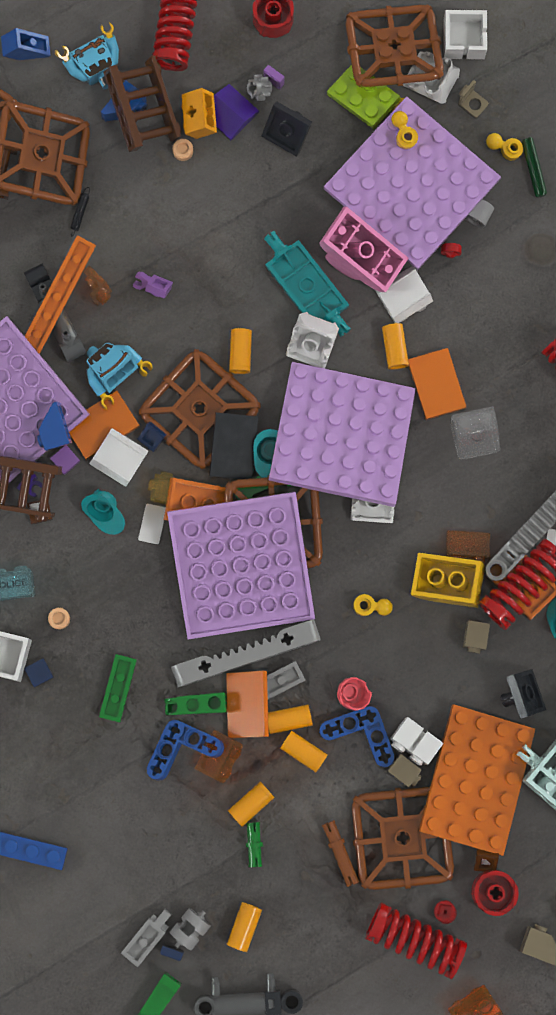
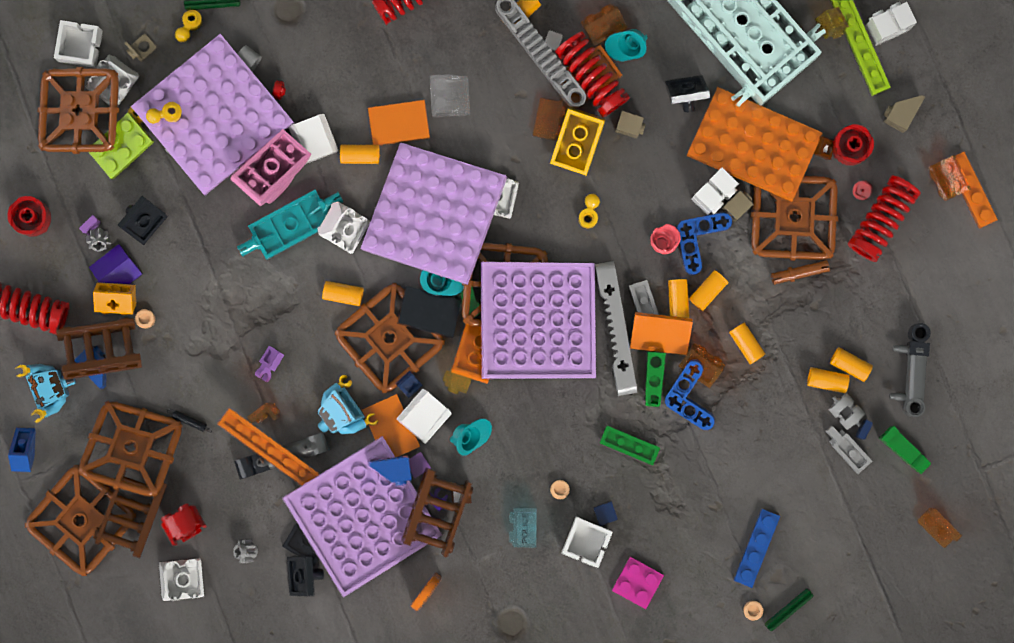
camera: 80 degrees left, 5 degrees up
(152, 524) = (487, 395): white sticker -> none
(222, 903) = (828, 380): none -> light orange pin
(254, 844) = (782, 345): green pin -> none

